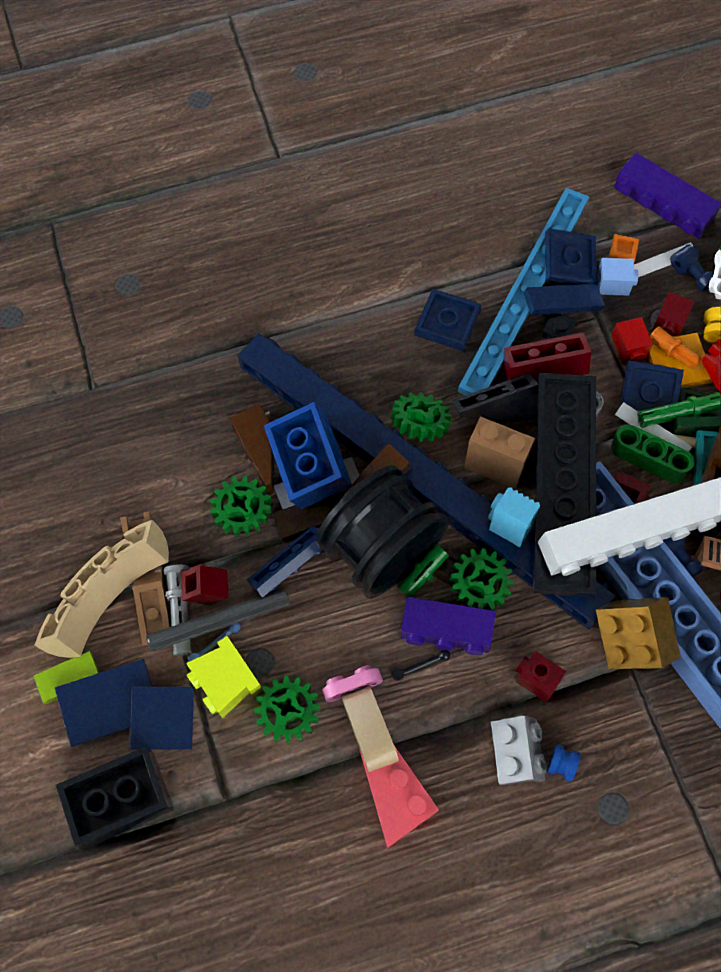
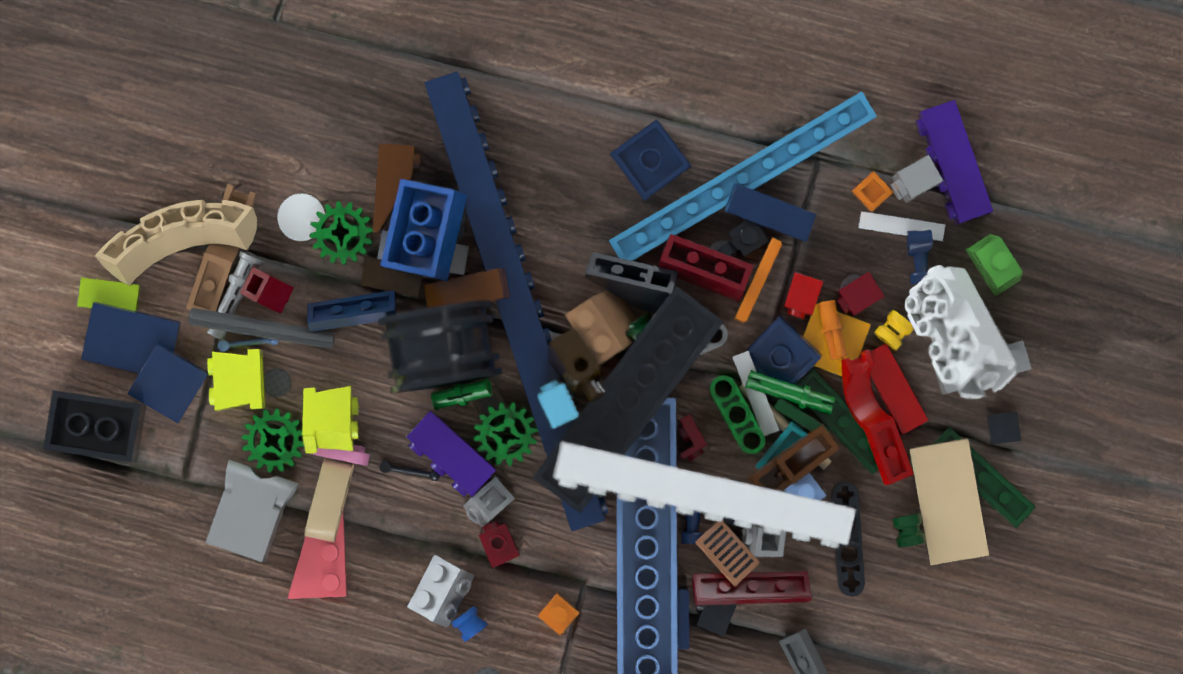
camera: 30 degrees right, 20 degrees up
(196, 520) = (297, 214): none -> white sticker
(304, 788) = (249, 511): none -> light grey piece
(326, 657) = (329, 419): none -> neon yellow hips
(421, 417) = (564, 247): green gear -> none
(501, 469) = (575, 365): none -> dark brown torso
(506, 648) = (488, 502): none -> light grey bracket
(531, 428) = (638, 325): none -> dark green axle
(570, 257) = (808, 173): dark blue tile -> none
(597, 368) = (758, 280): none -> orange tile
(616, 276) = (839, 220): light blue brick -> none
(633, 702) = (558, 613): none -> orange brick
(638, 633) = (595, 565): pearl gold brick -> none
(652, 213) = (915, 179): none -> light grey brick

